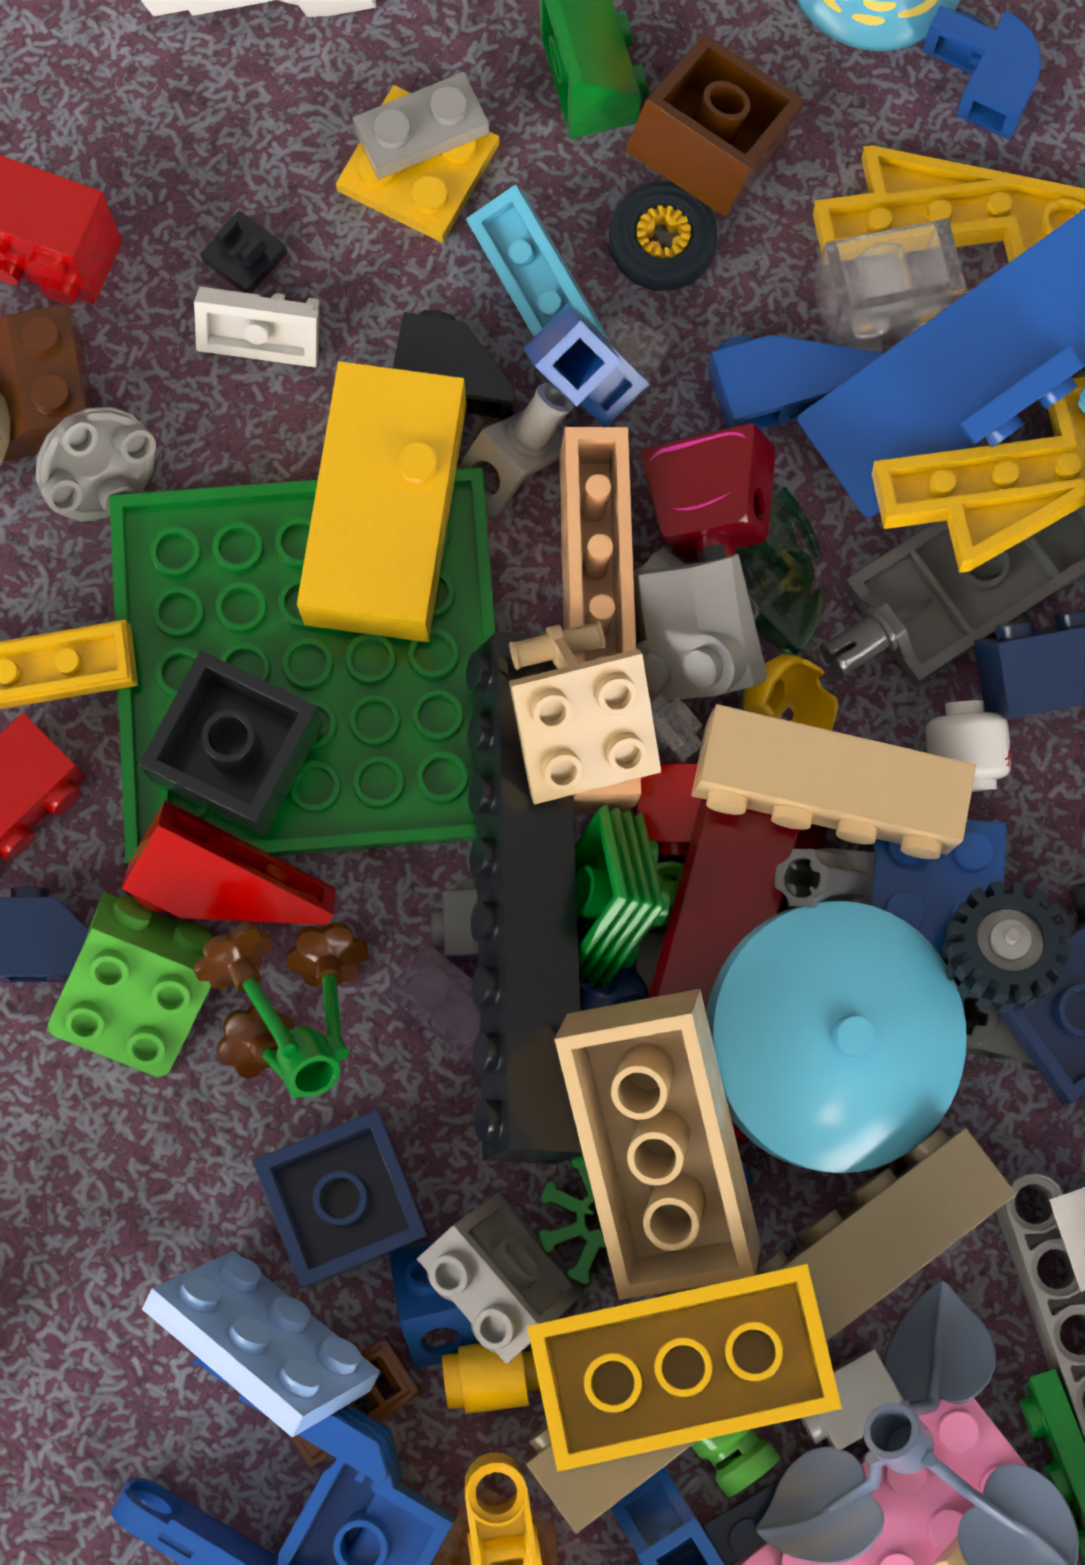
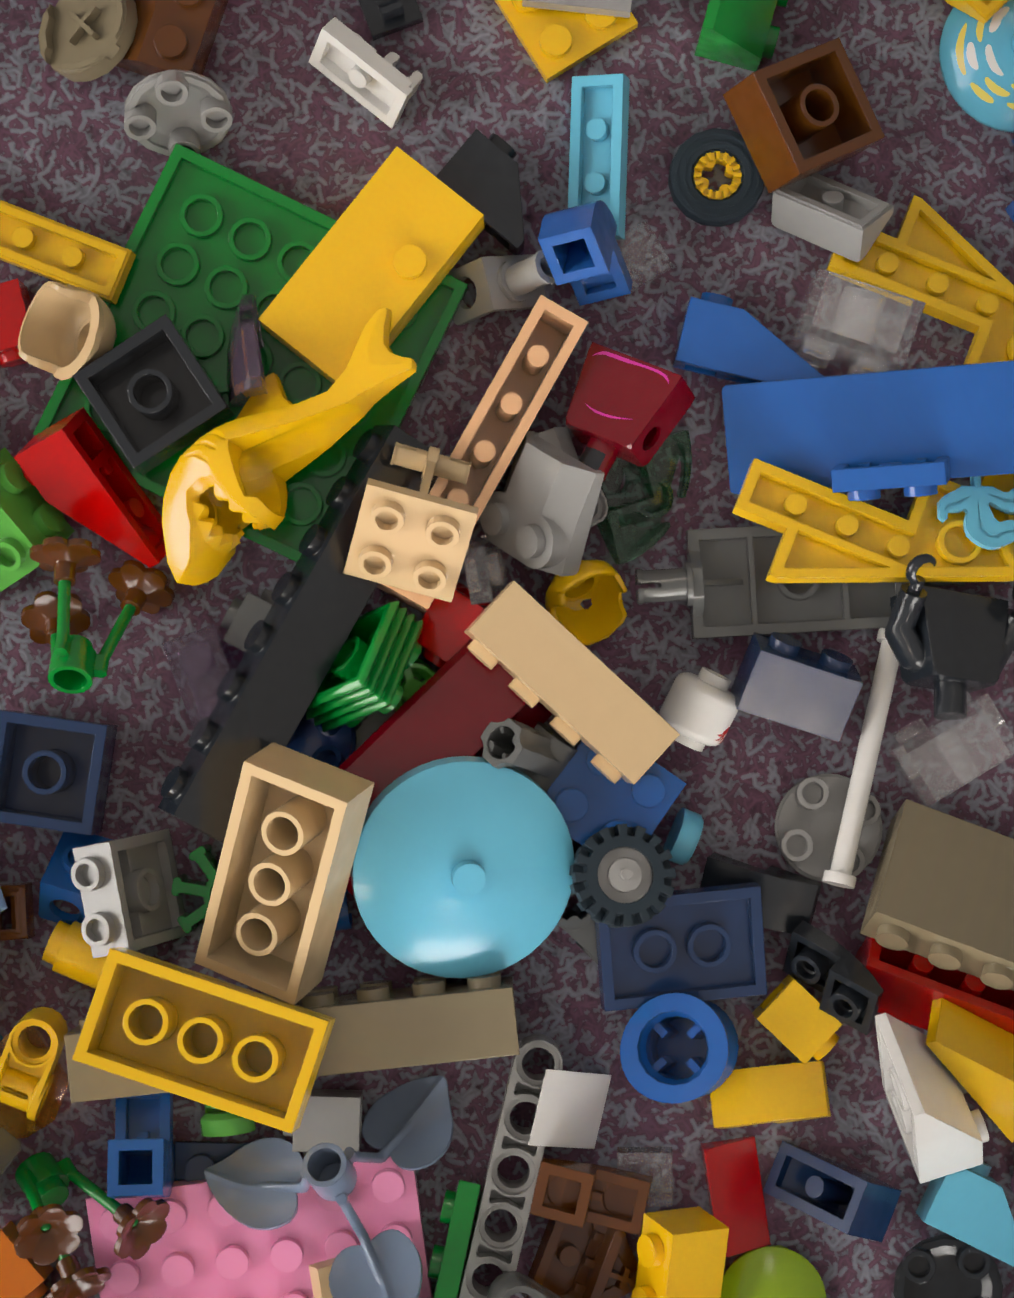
camera: 30 degrees right, 10 degrees up
(102, 729) = (65, 329): none -> tan helmet
(303, 653) = (244, 359): none -> brick
(363, 760) = (243, 466): none -> yellow piece
(797, 206) = (830, 215): none -> light grey slope
(1036, 873) = (684, 835): none -> medium azure tile

